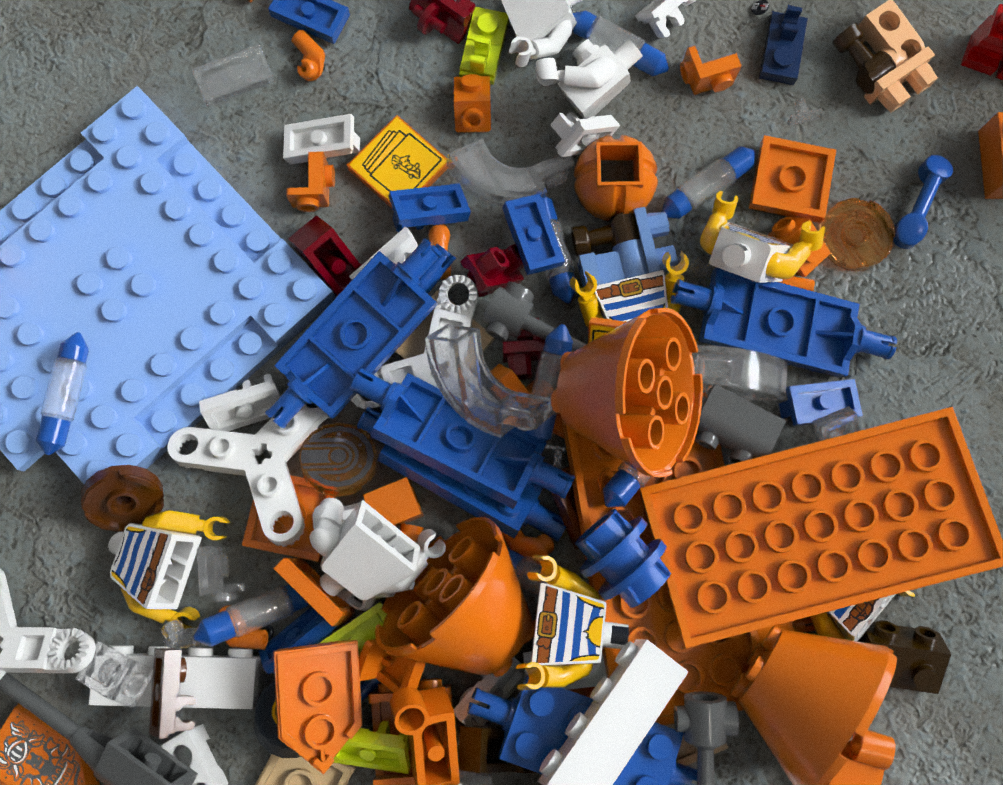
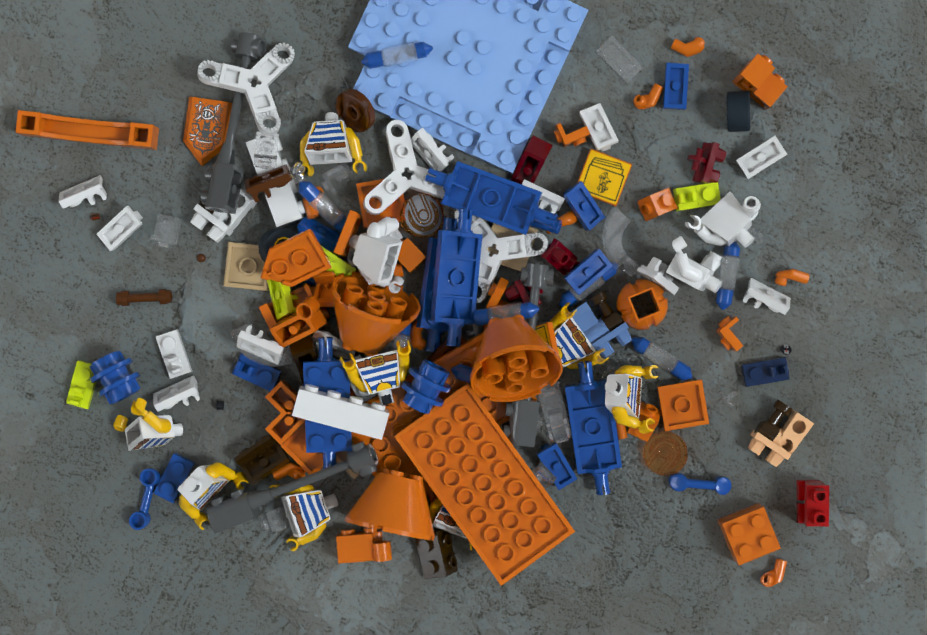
camera: 65 degrees right, 10 degrees up
(473, 391) = (485, 274): clear arch -> none

